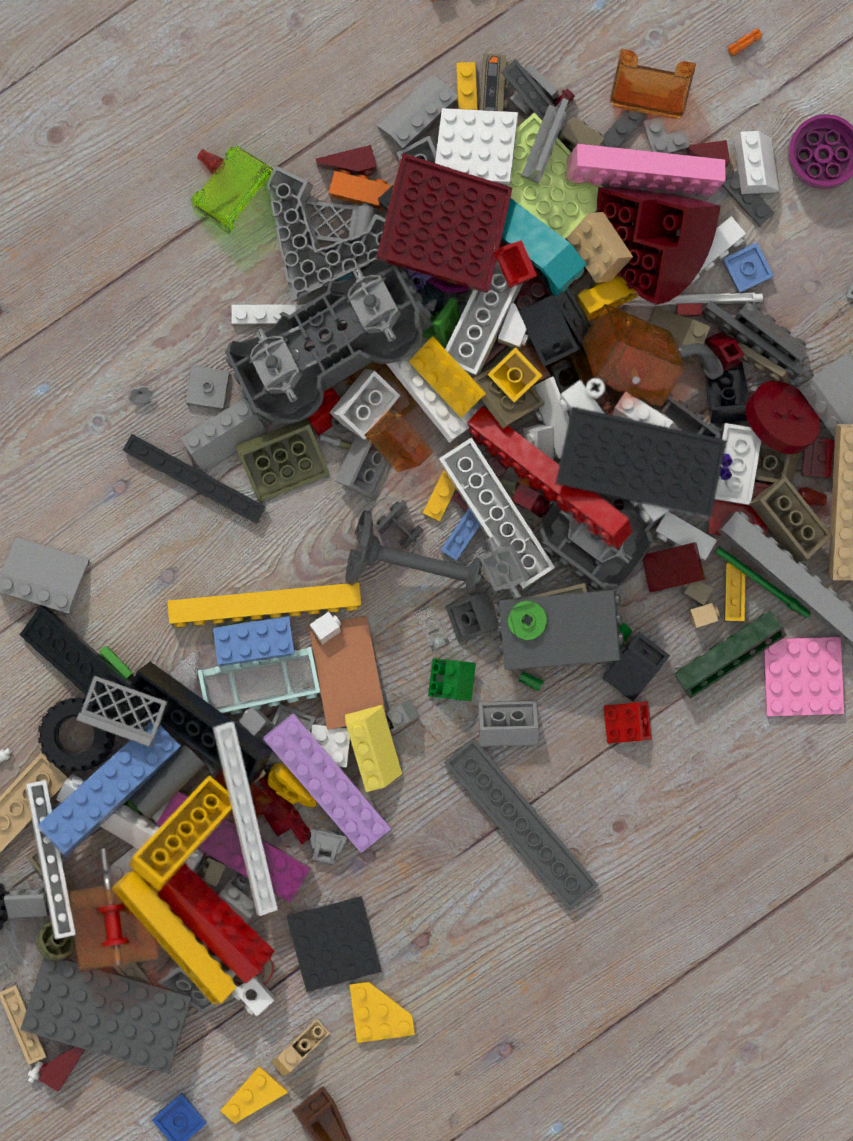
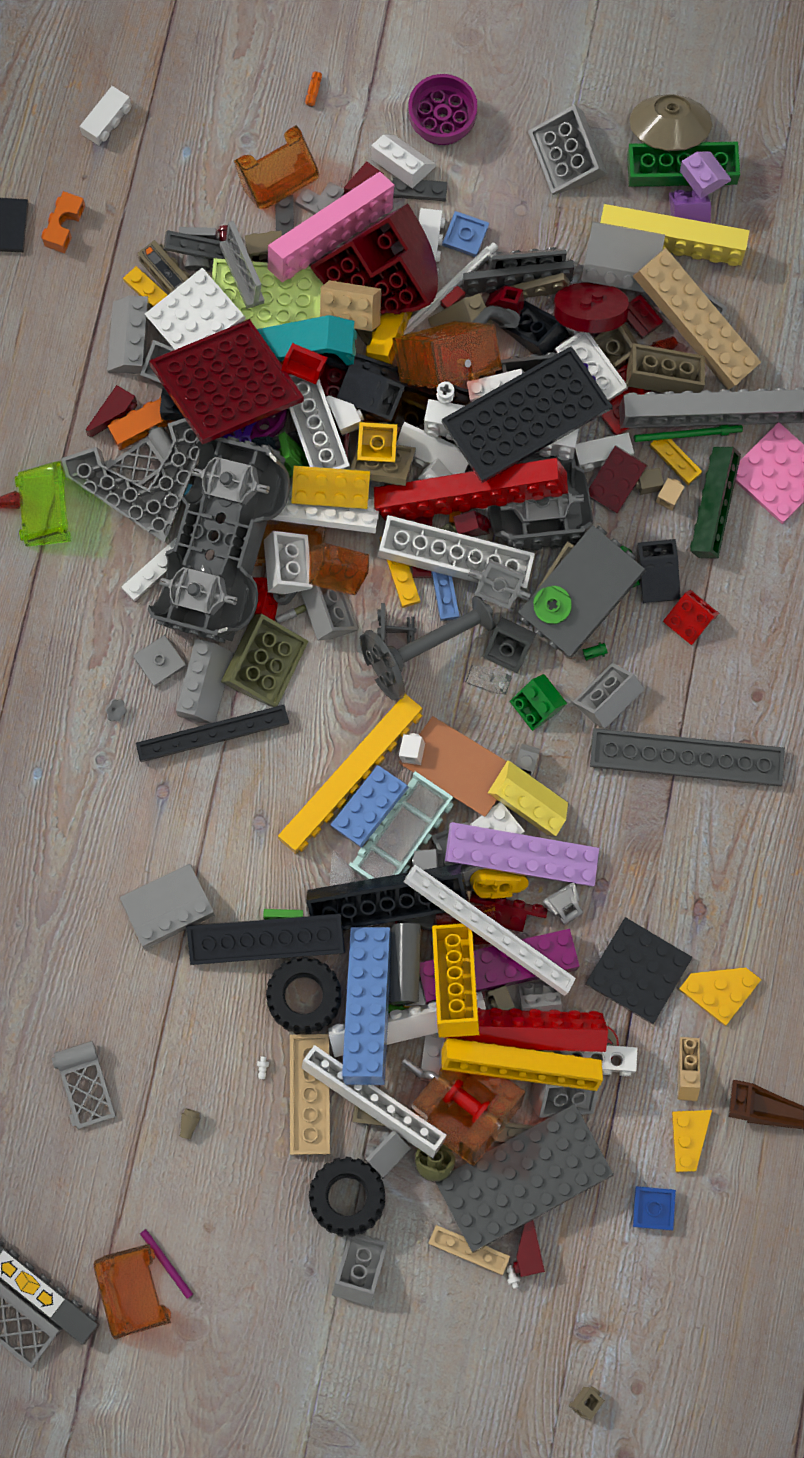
camera: 45 degrees left, 10 degrees down
(114, 726) = (331, 954): light grey fence -> none

